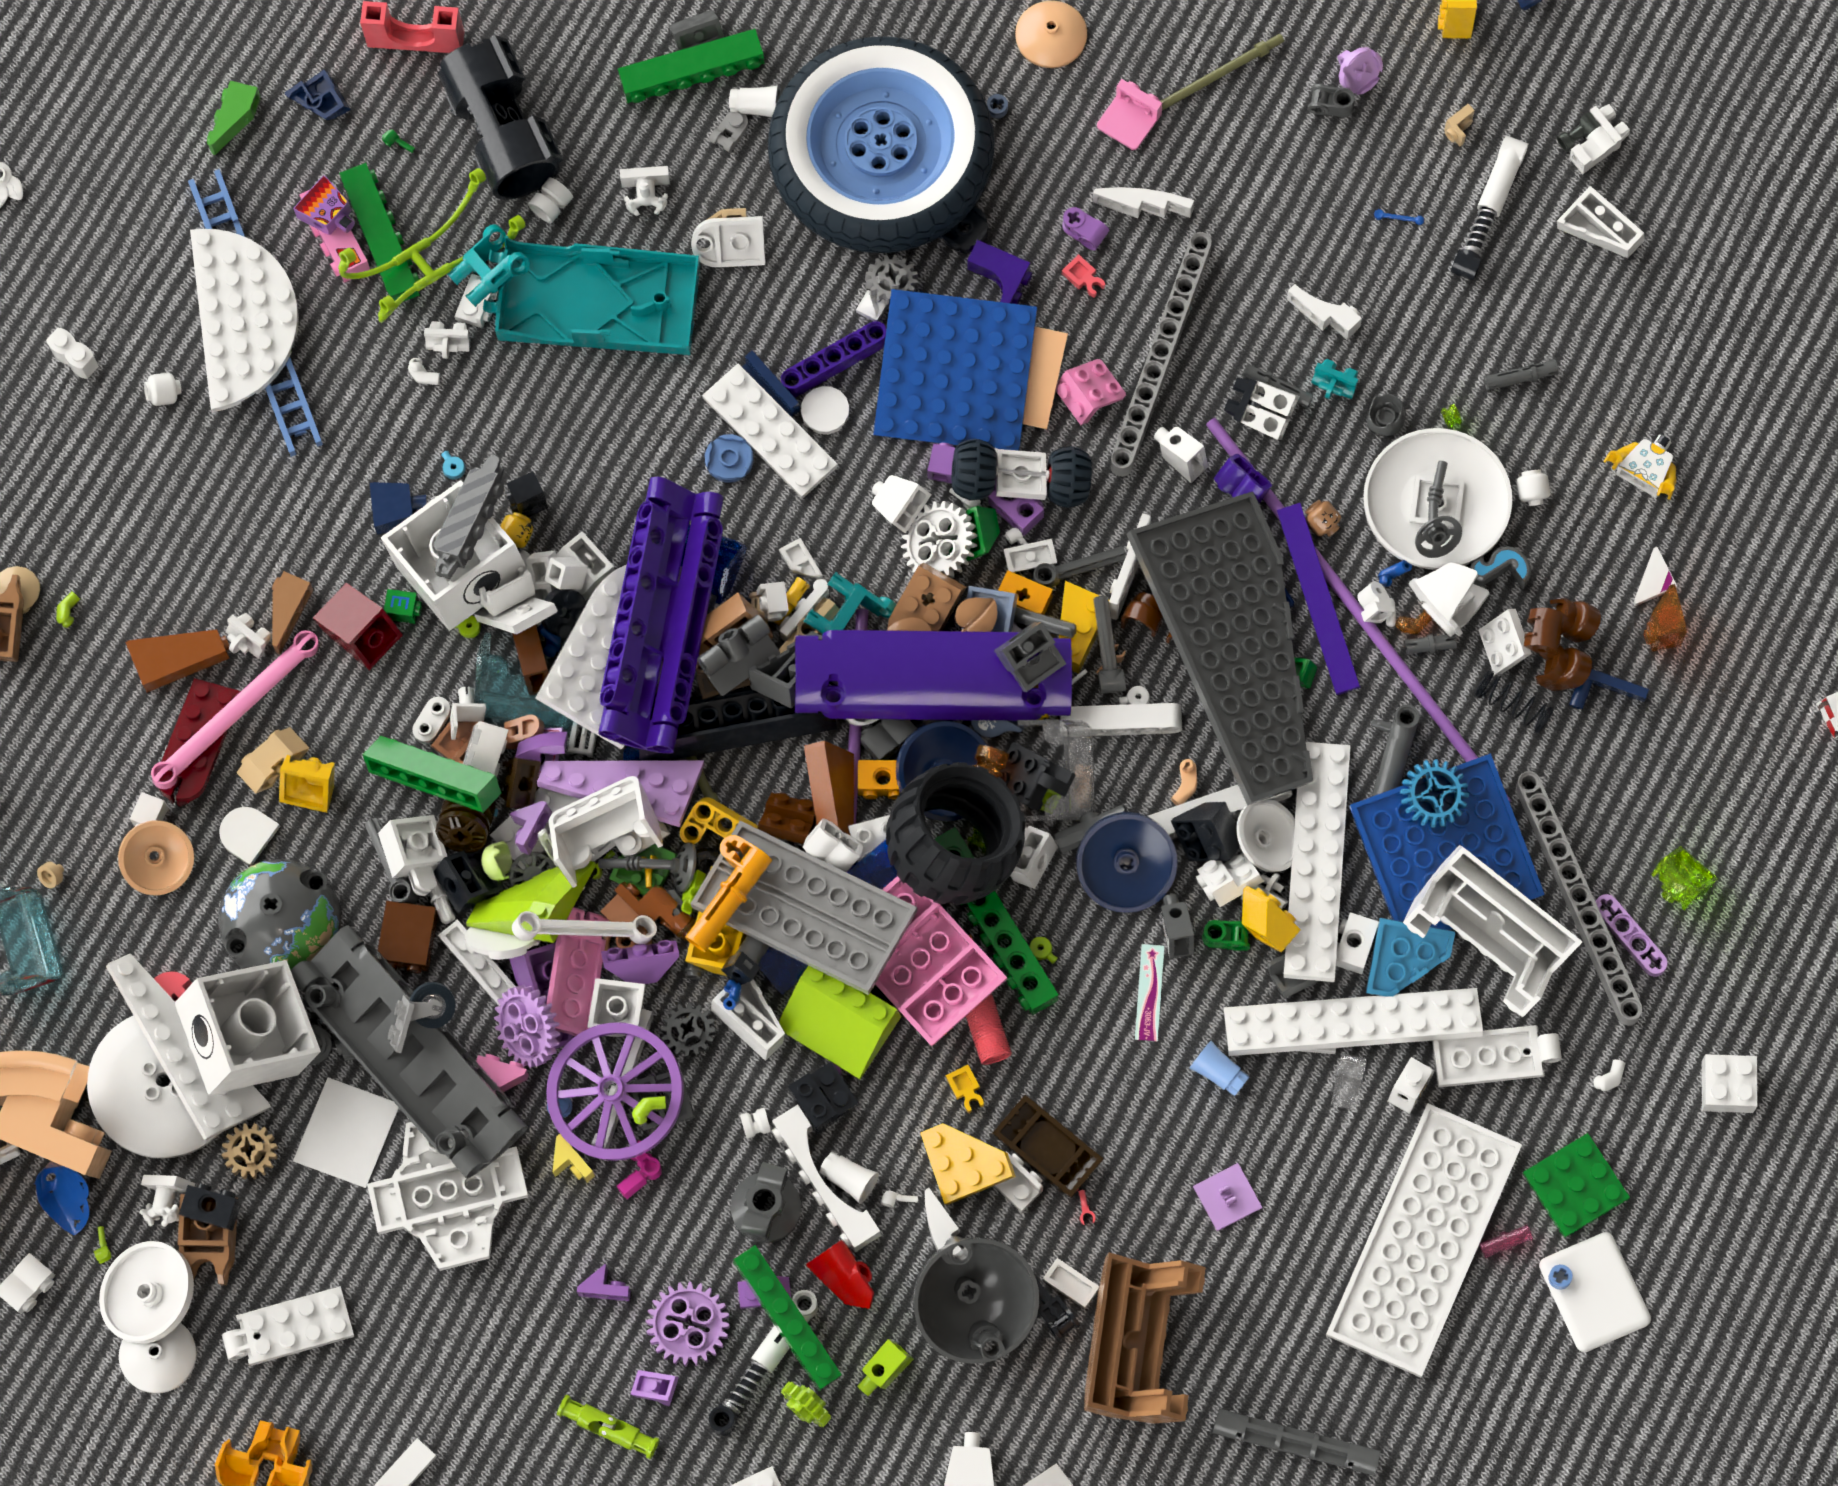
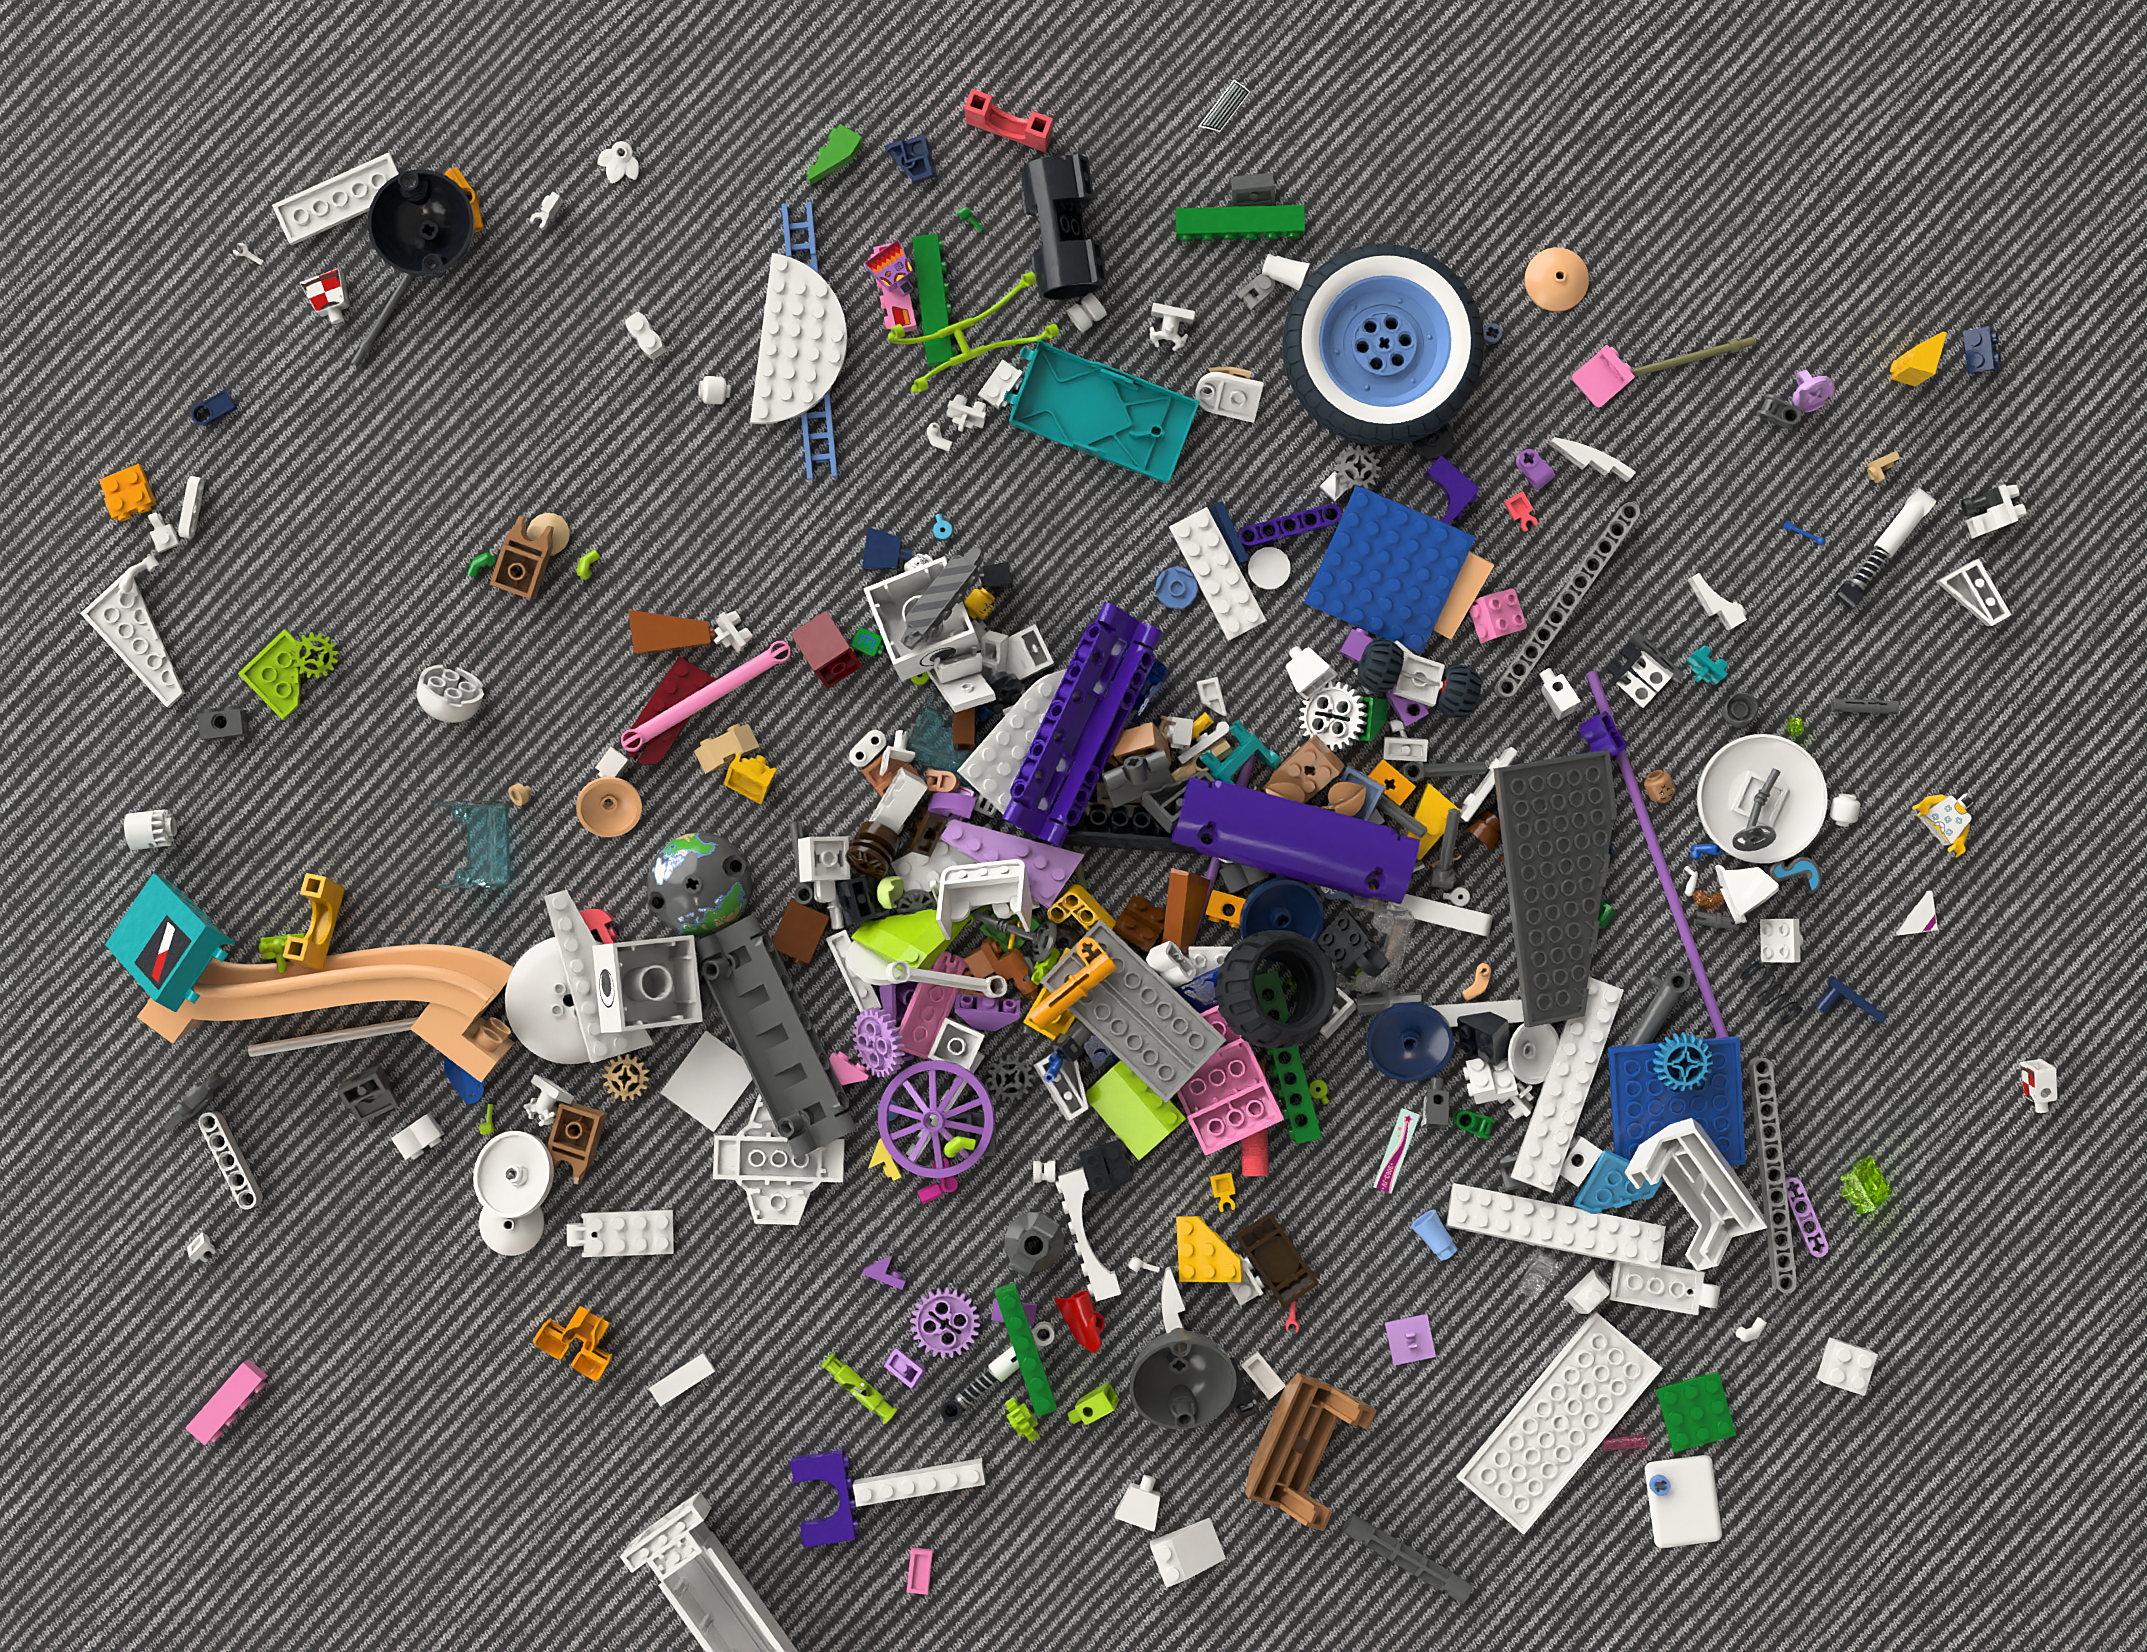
camera: 15 degrees right, 15 degrees up
(222, 1216) = (568, 1125): black brick -> none
(247, 833) = (690, 803): white tile -> none
(289, 601) = (773, 612): medium nougat slope -> none
(429, 1005) = (800, 1010): plate -> none
(432, 773) = (855, 805): brick -> none
(491, 279) = (1008, 351): teal connector -> none
(532, 819) = (930, 867): medium lavender slope -> none
(566, 573) = (1012, 661): white brick -> none
(849, 1176) = (1108, 1238): white plant -> none
(991, 759) = (1319, 927): clear orange wheel -> none
(1022, 647) = (1382, 852): dark grey brick -> none
(1266, 920) = (1512, 1128): yellow slope -> none
(1318, 599) = (1635, 856): dark purple tile -> none
(1375, 600) = (1682, 873): white leg -> none
(1575, 621) = (1822, 975): reddish brown piece -> none
(1667, 623) = (1920, 960): clear orange slope -> none

